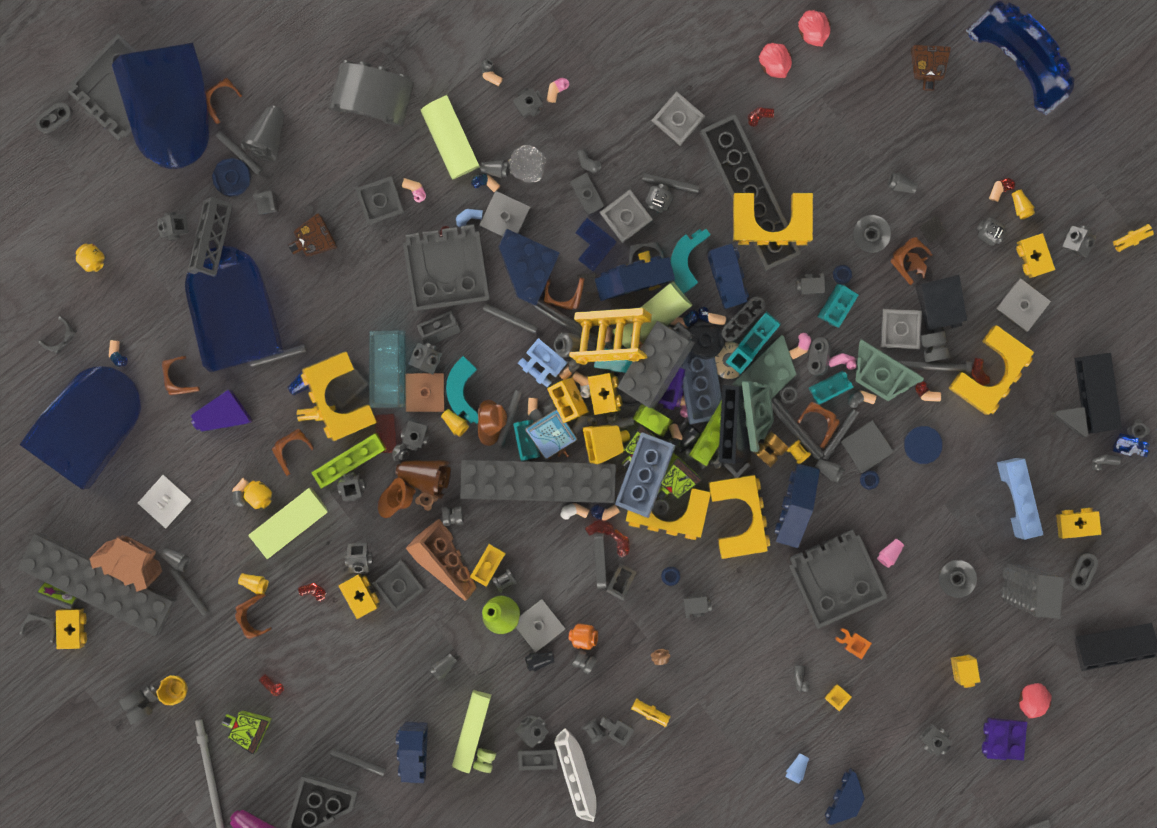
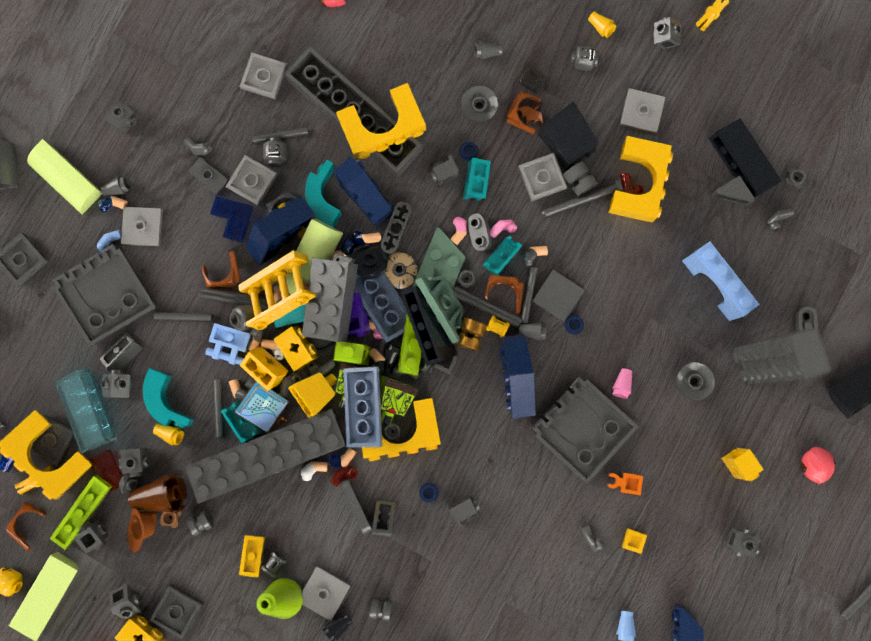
camera: 10 degrees left, 5 degrees down
(416, 188) = (50, 234): arm -> none
(425, 392) = (130, 417): nougat plate -> none
(437, 554) = (205, 568): nougat wedge -> none
(488, 72) = (77, 107): arm -> none
(490, 422) = (200, 419): dark orange piece -> none
(526, 264) = (177, 260): dark blue brick -> none
(527, 164) = (141, 169): clear hair -> none
(556, 87) = (143, 94): arm -> none
(583, 636) = (370, 586): orange head -> none
(623, 543) = (371, 480): clear red arm -> none
(650, 712) = (464, 632): yellow pin -> none
(660, 656) = (451, 574): medium nougat plate -> none
(753, 342) = (413, 244): teal arch -> none
(754, 538) = (491, 424): yellow arch -> none
(758, 113) = (334, 42): clear red arm -> none
(883, 373) = (543, 222): sand green wing -> none
(923, 445) = (608, 272): dark blue tile -> none
(925, 394) = (590, 226): arm -> none
(1001, 186) = (575, 17): arm -> none
(1004, 739) = (806, 514): dark purple plate -> none
(1038, 246) = (630, 54): yellow brick -> none
(1089, 527) = (792, 279): yellow brick -> none
(1128, 445) = (794, 193): clear blue plate -> none

